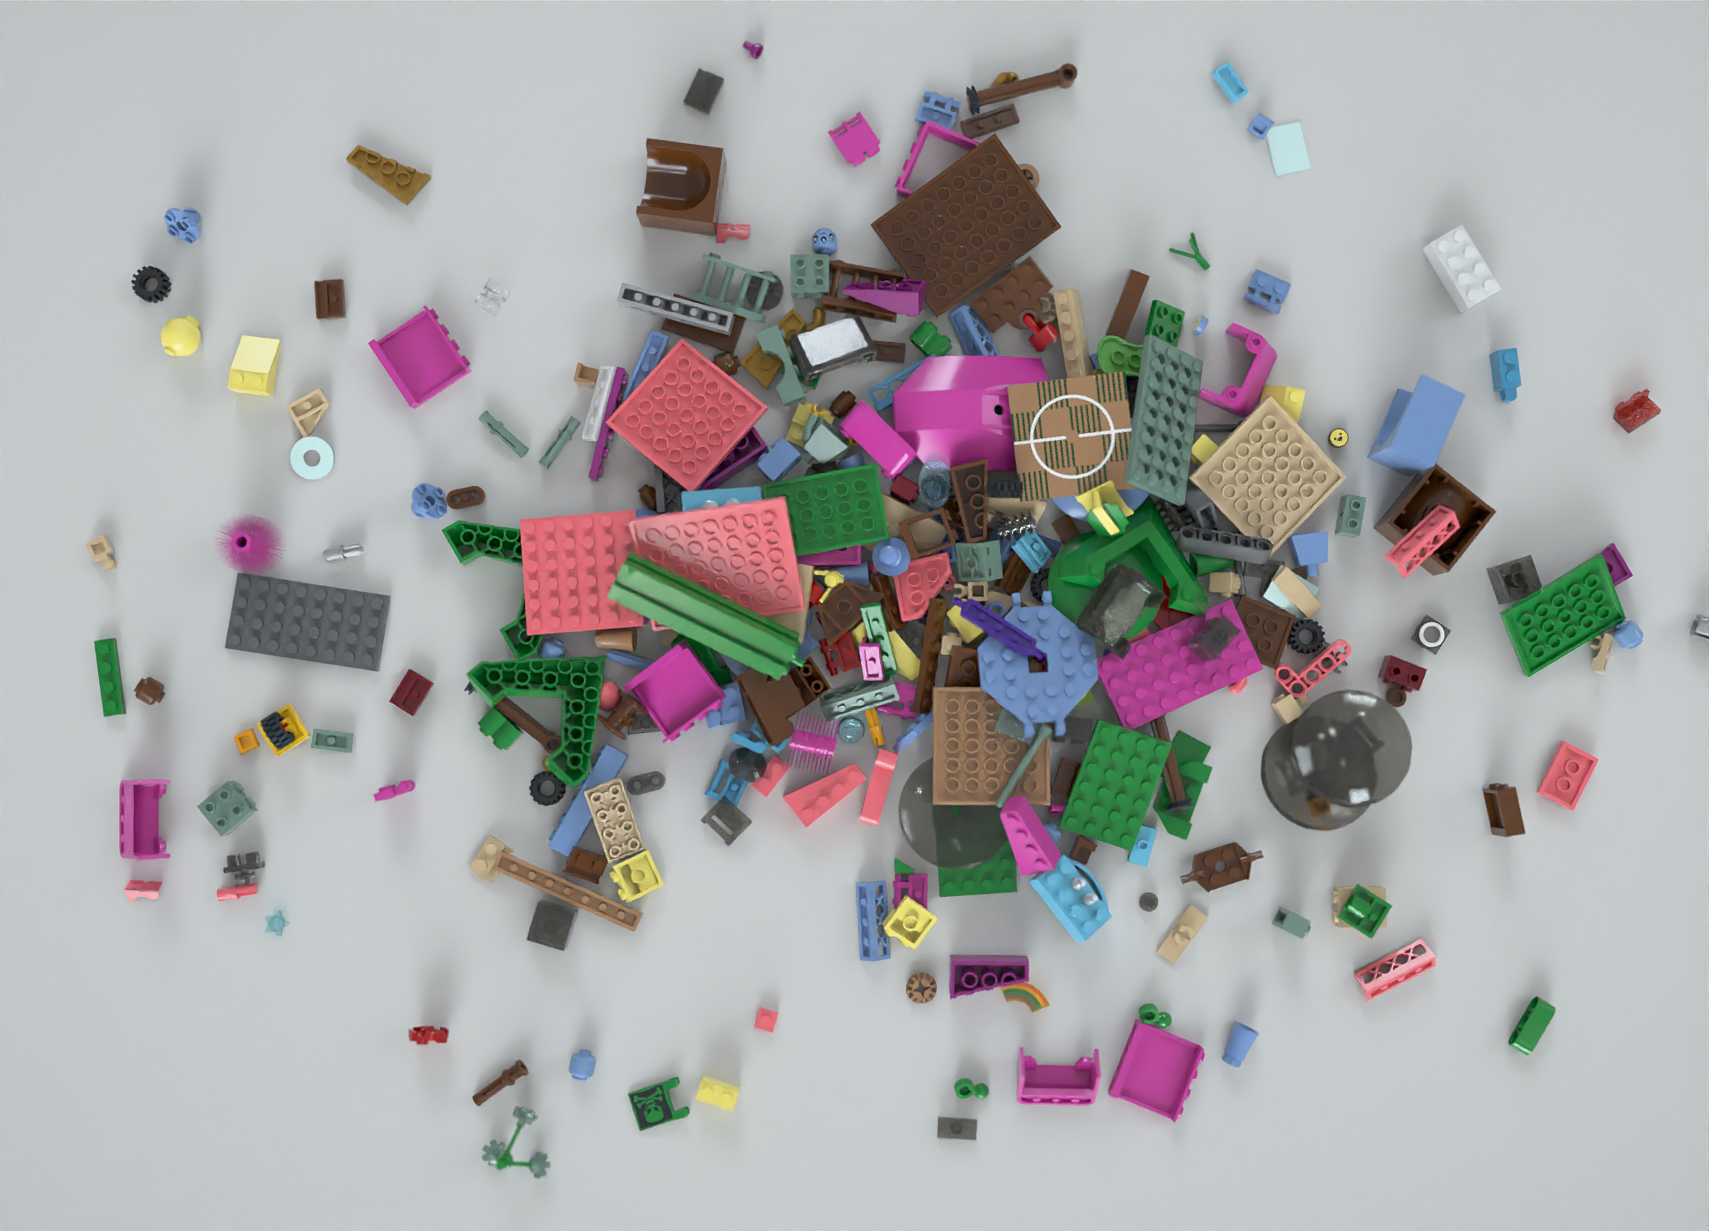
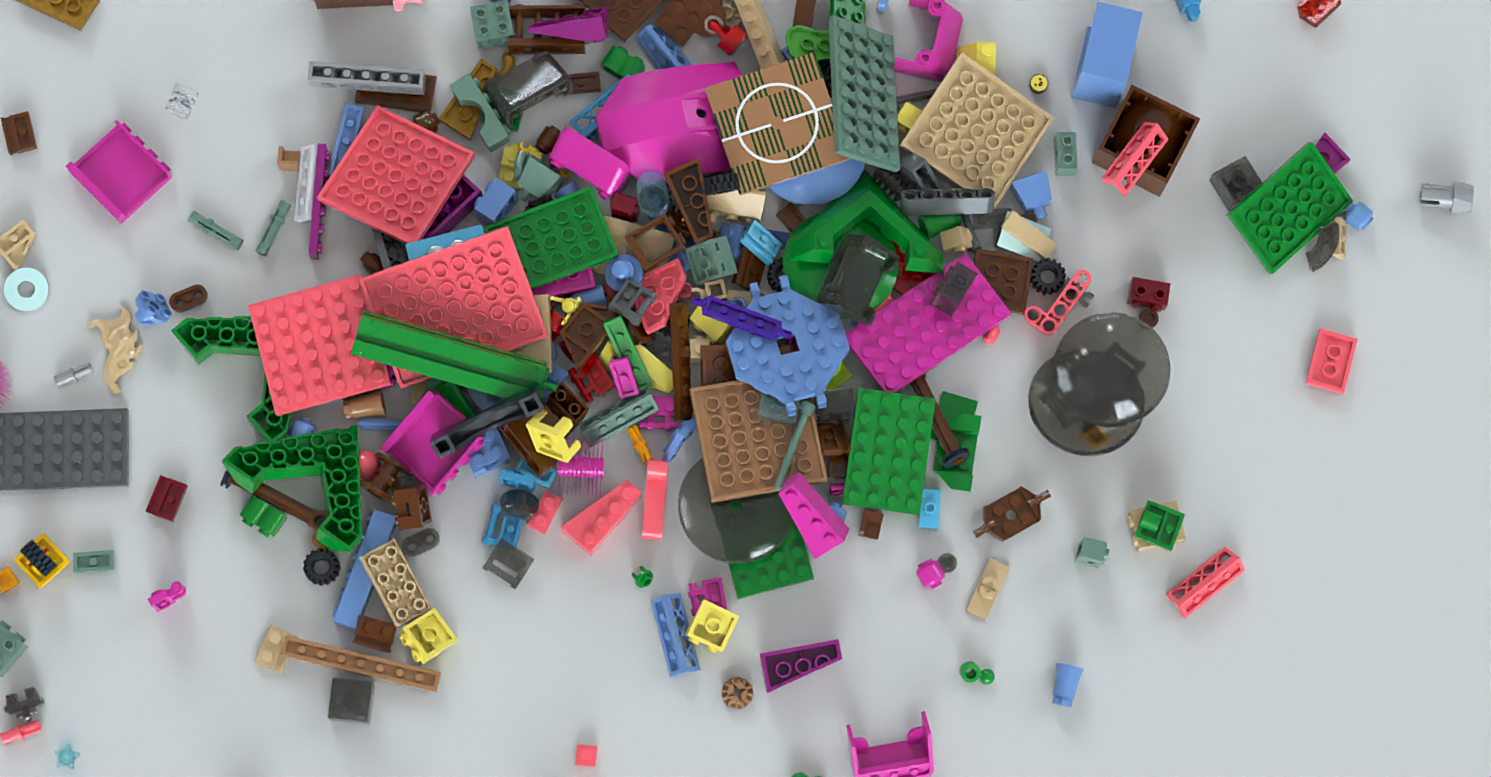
camera: 15 degrees left, 10 degrees down
(393, 531) = (121, 348): none -> tan piece
(643, 750) = (411, 506): none -> reddish brown piece
(720, 300) = (444, 71): sand green fence -> none
(763, 680) = (514, 408): none -> black arch
(774, 294) = (449, 57): clear smoke plate -> none
(788, 720) = (550, 439): none -> light yellow panel
(851, 728) = (616, 450): clear light blue hair -> none
(854, 860) = (644, 578): none -> green plate
(889, 585) = (627, 297): none -> dark grey plate
(902, 868) = (694, 575): green slope -> none
(1016, 526) = (741, 220): clear smoke piece -> none
(1026, 994) = (843, 678): clear yellow tile -> none
(1063, 761) = (833, 439): none -> reddish brown plate
(1073, 898) = (867, 571): medium azure piece -> none
(1105, 509) = (823, 185): light yellow piece -> none
(1130, 910) = (930, 573): none -> dark pink head
(1156, 1070) = (989, 728): dark pink panel -> none
(1288, 707) = (1043, 346): tan brick -> none
(1418, 636) = (1173, 263): piece -> none
(1503, 810) = (1274, 403): reddish brown window -> none
(1531, 1025) = (1351, 609): green beam -> none
(1587, 661) = (1324, 247): none -> clear smoke tile

